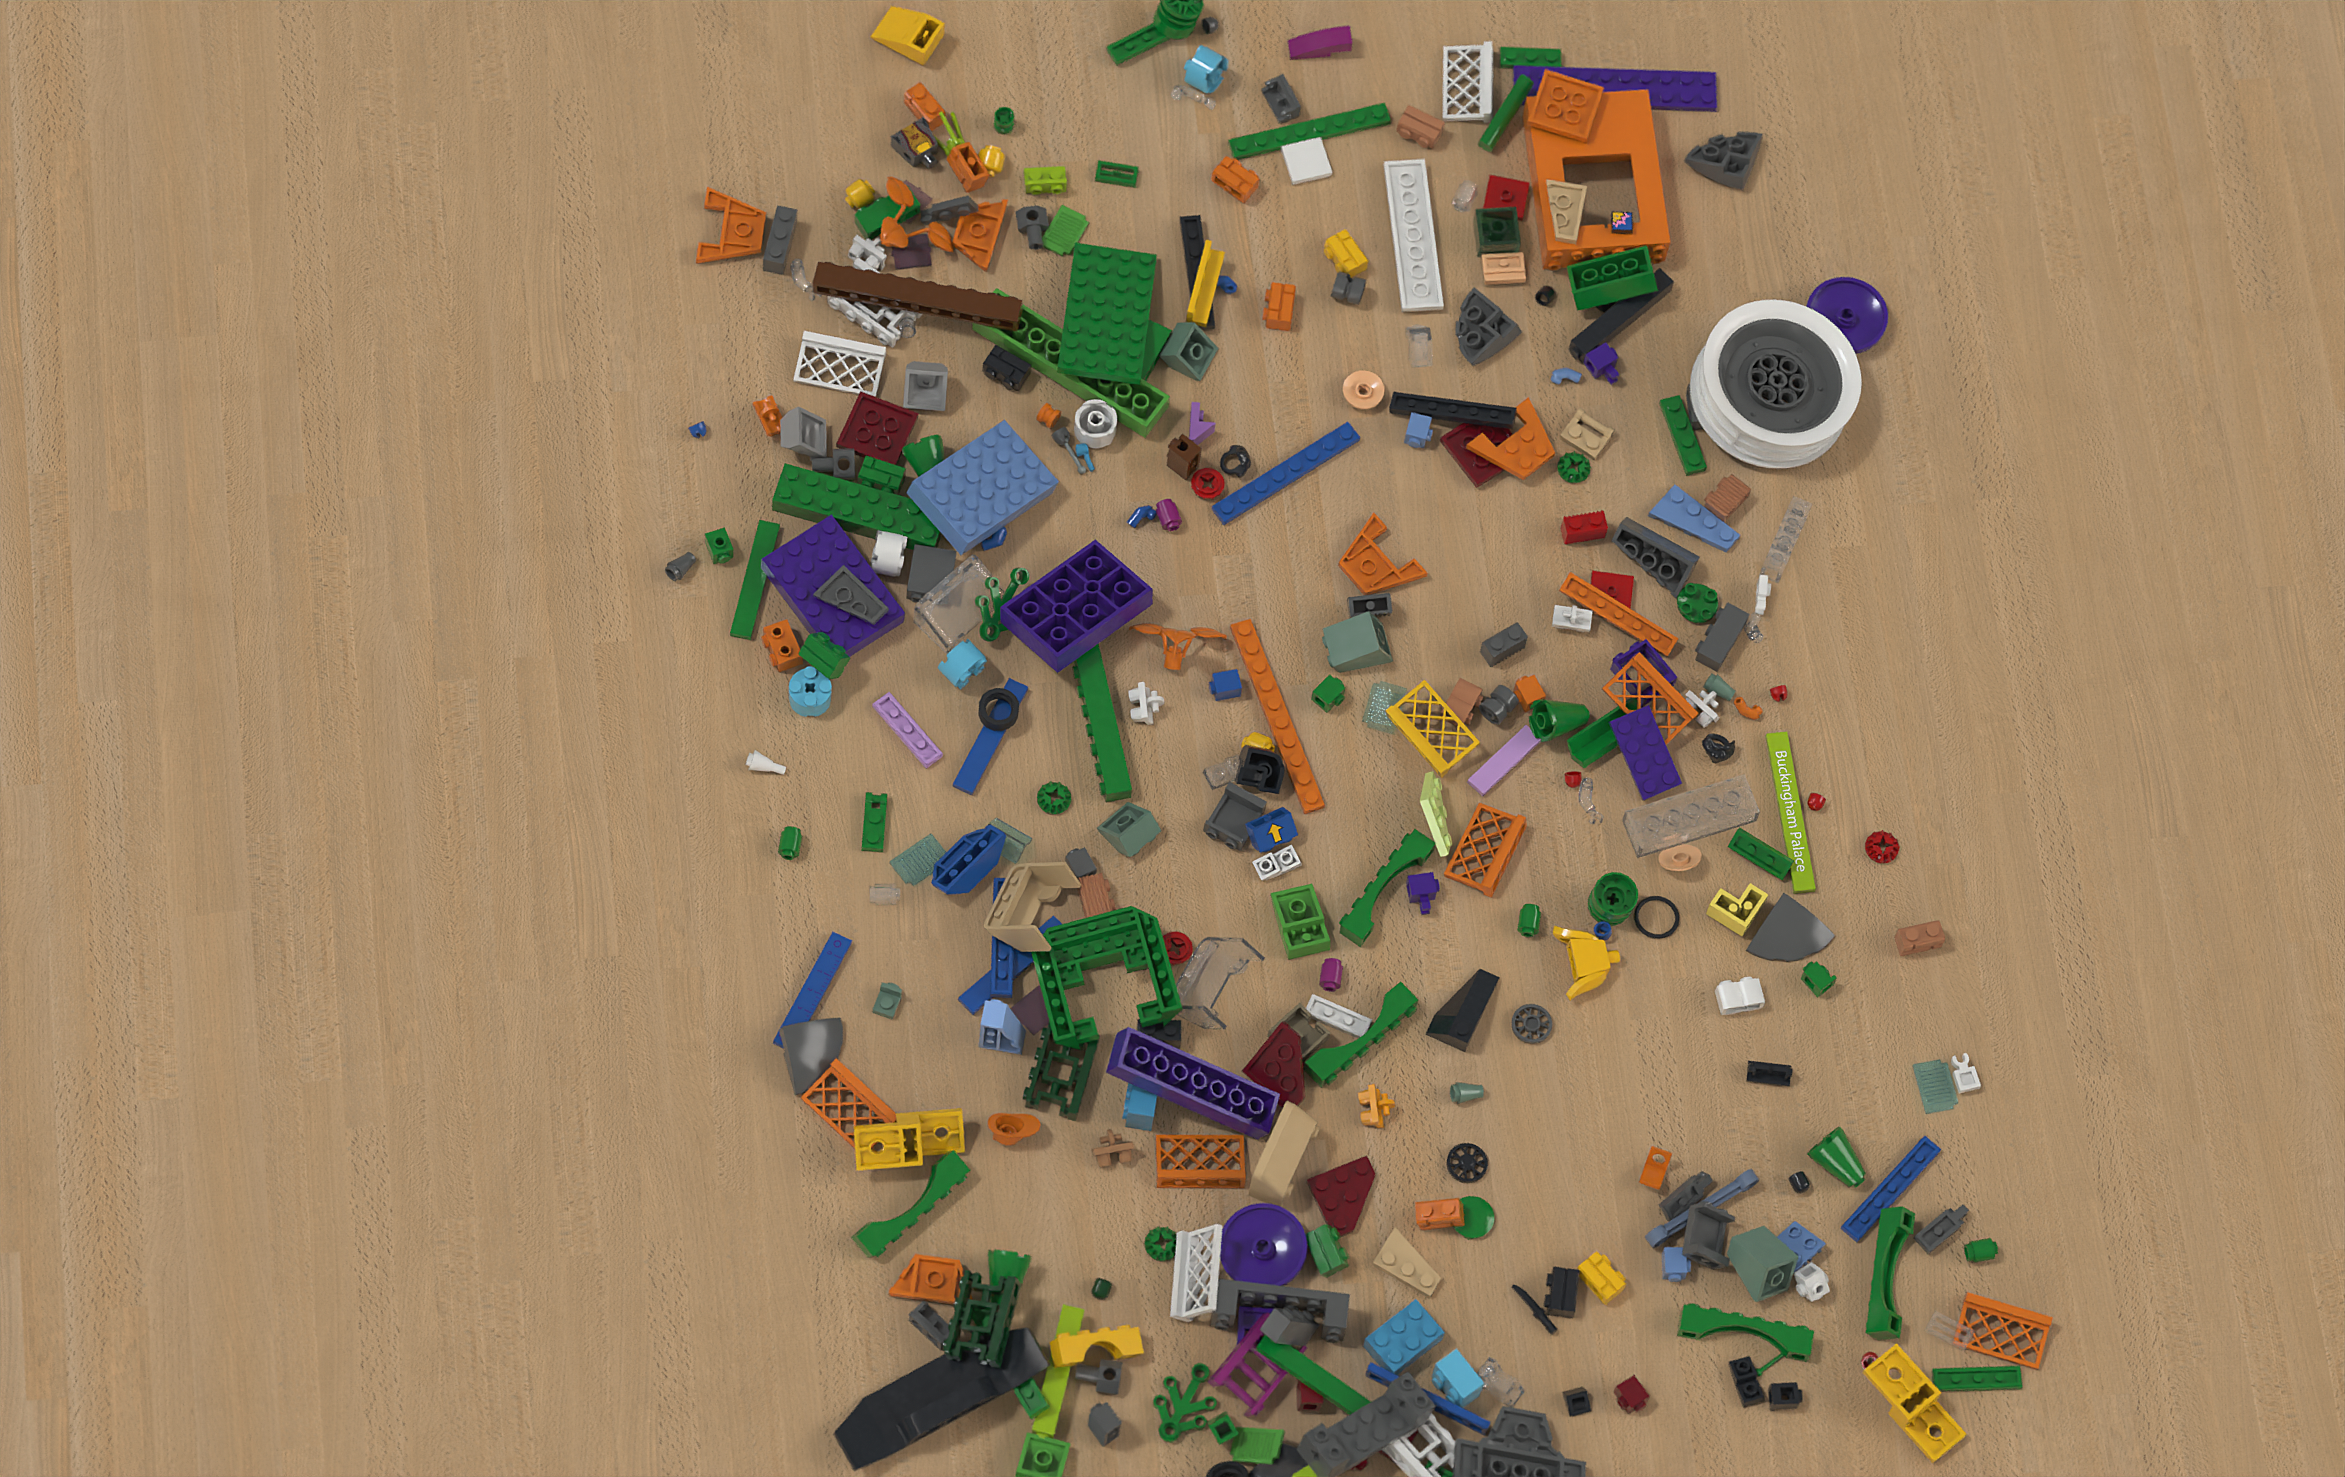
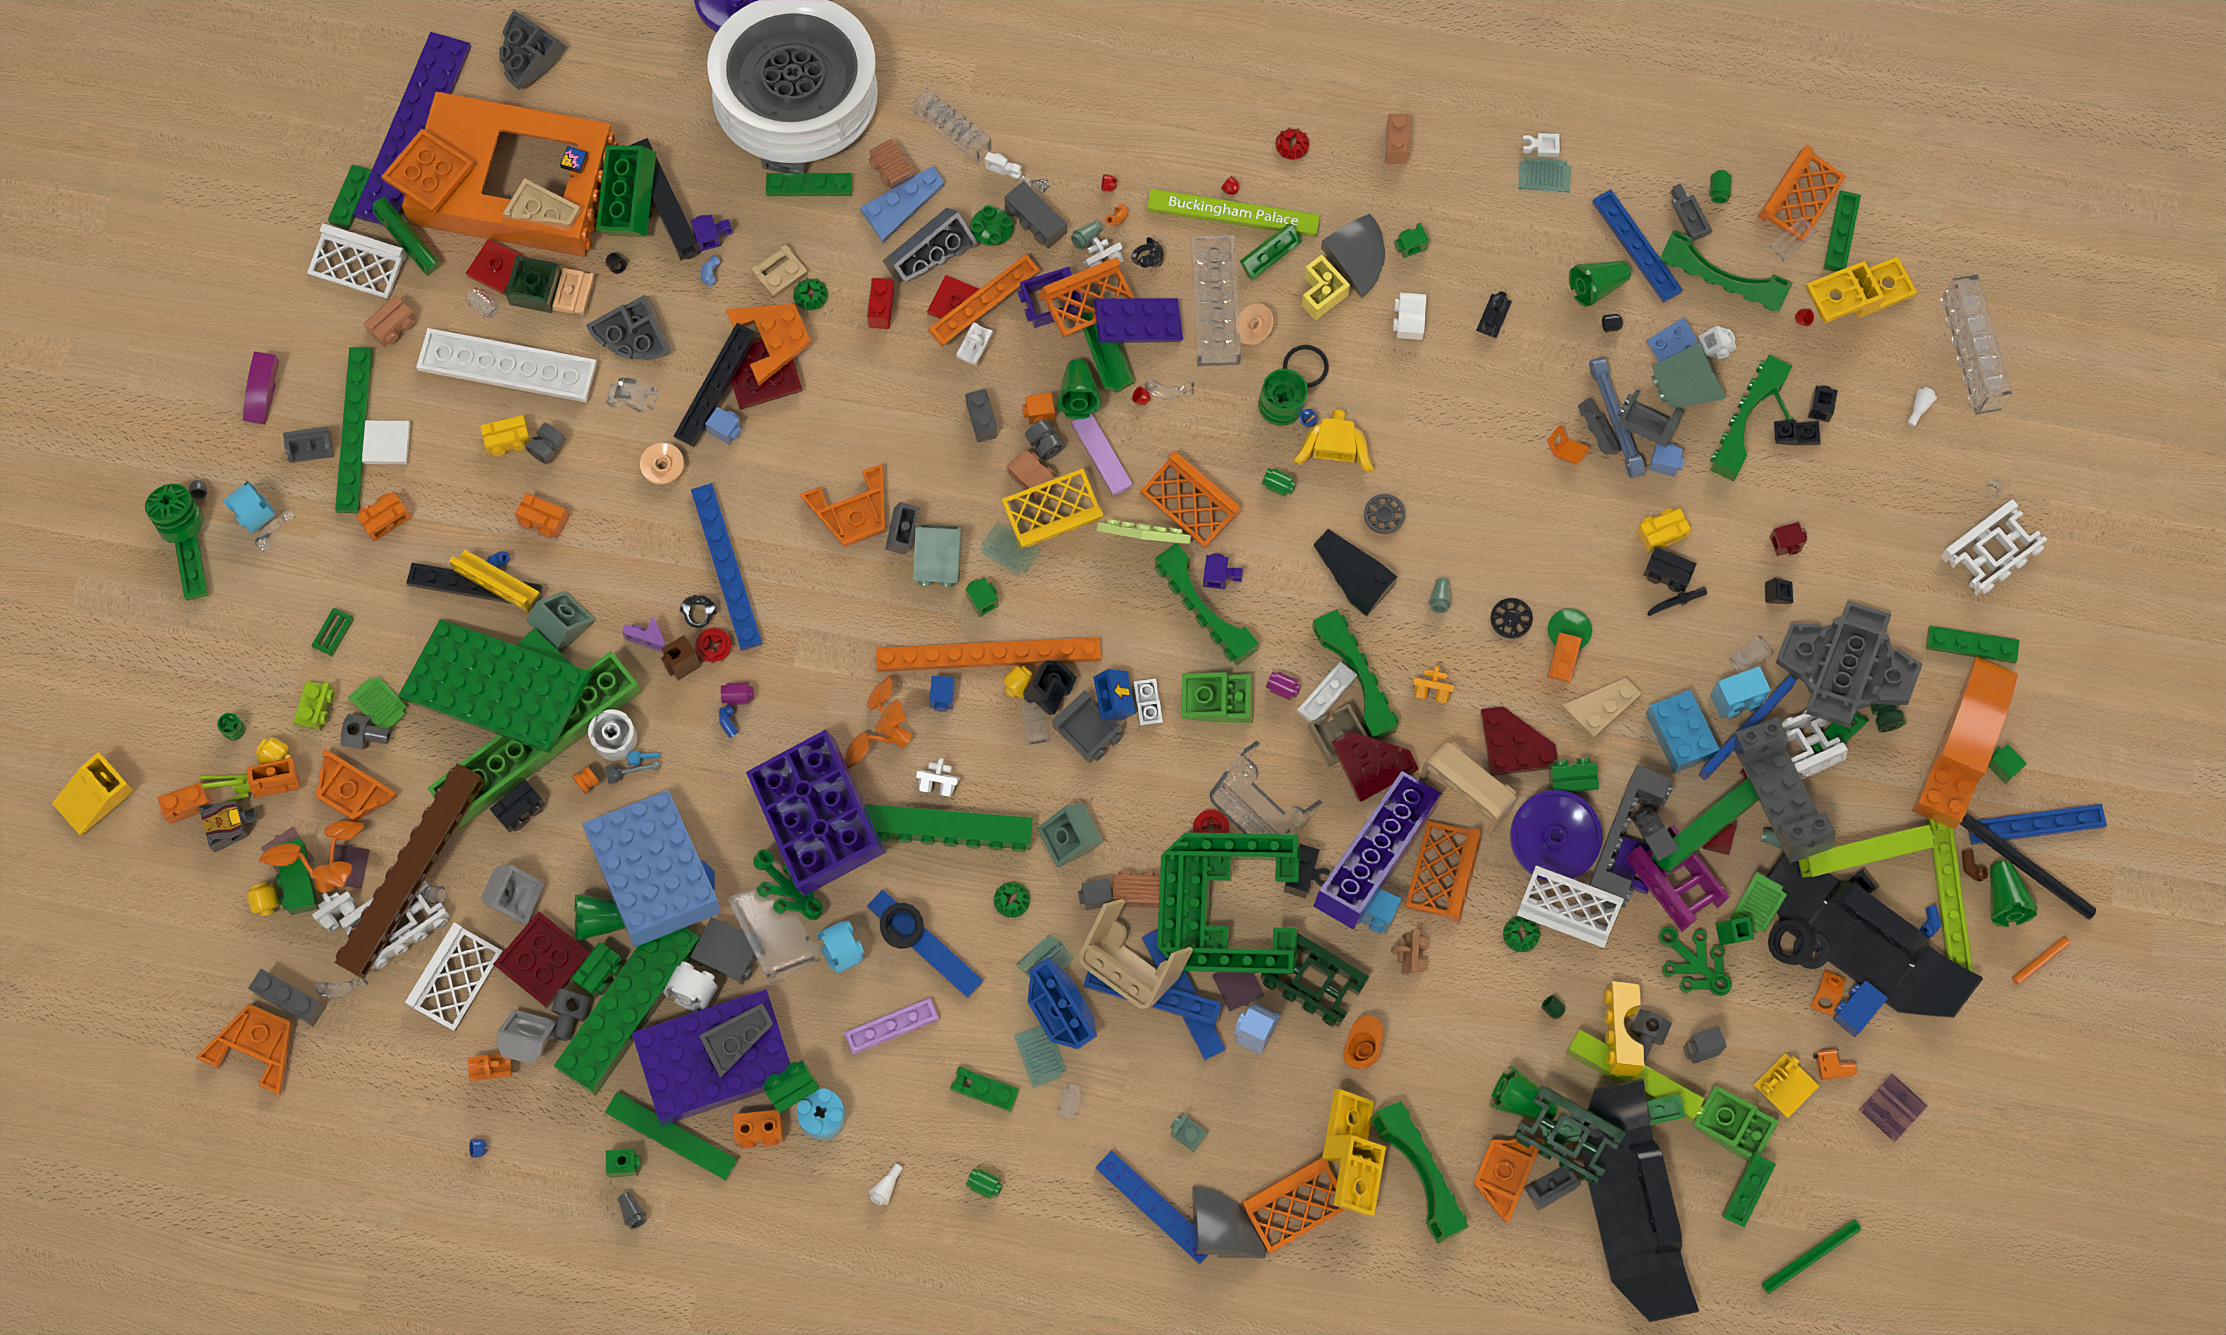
camera: 65 degrees left, 5 degrees up
(949, 209) = (315, 814): dark grey hinge -> none

